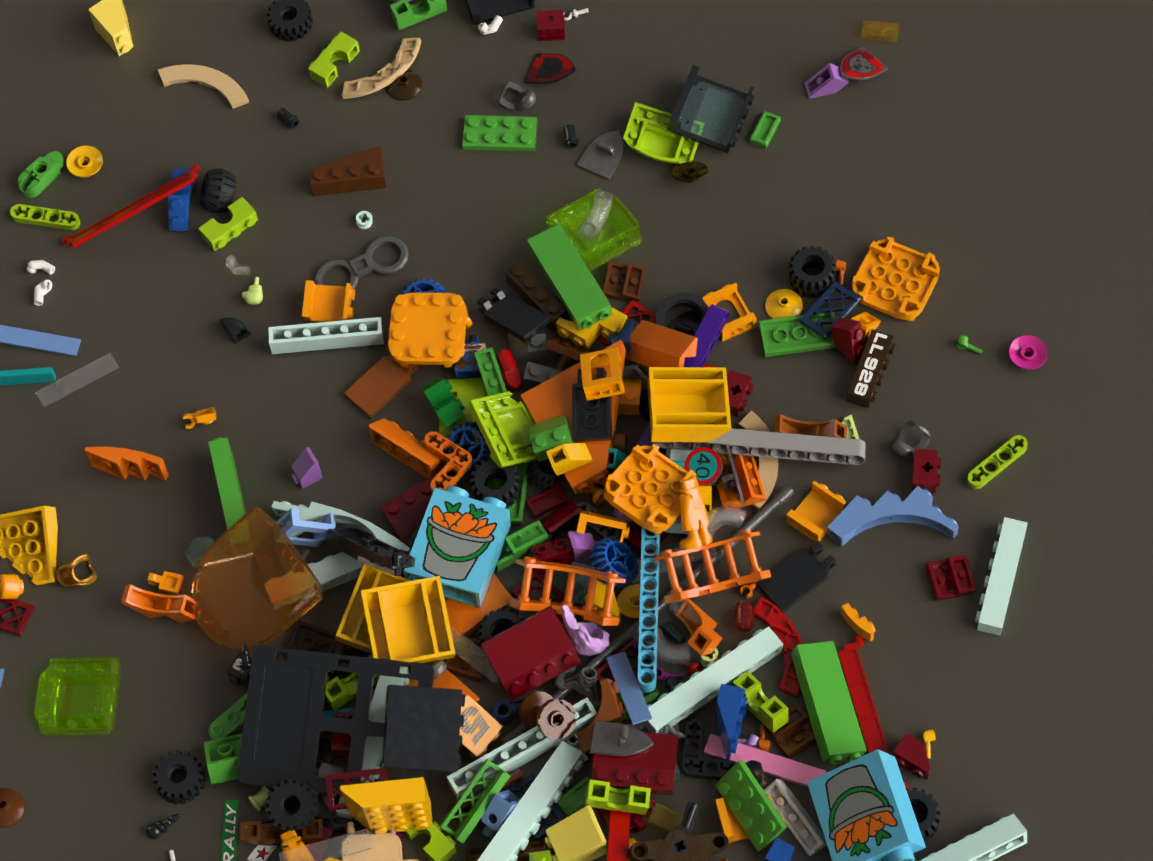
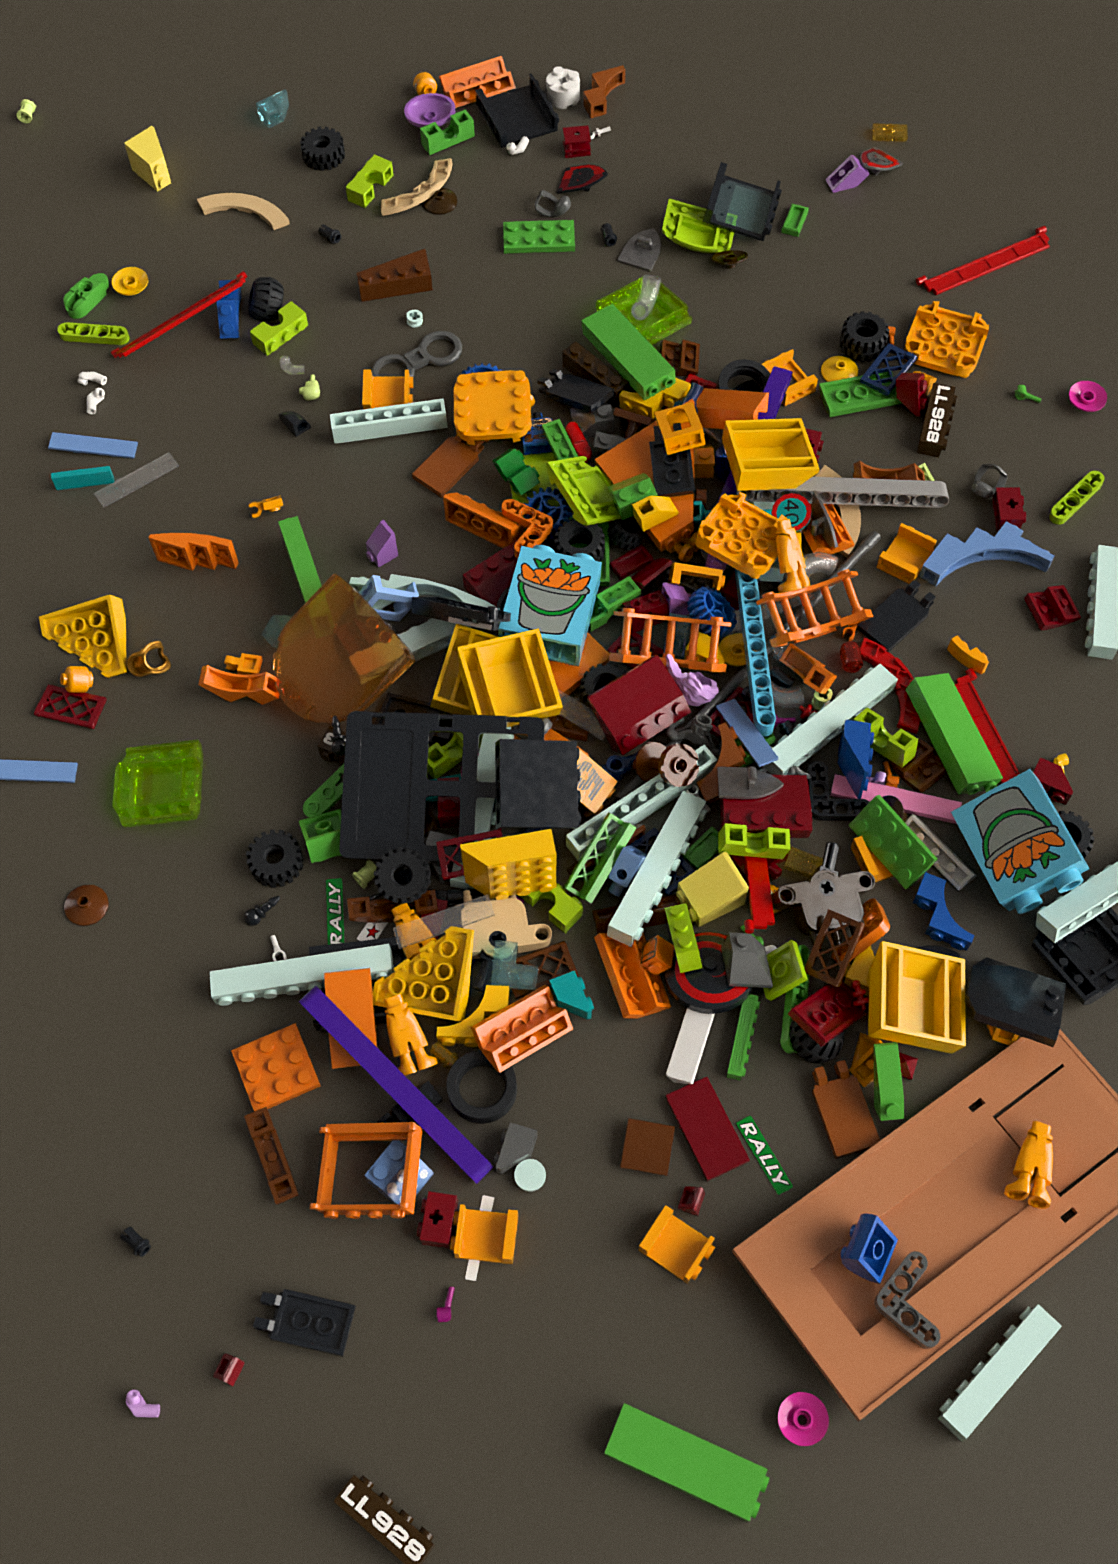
camera: 10 degrees left, 0 degrees up
(956, 192) = (987, 263): none -> red piece

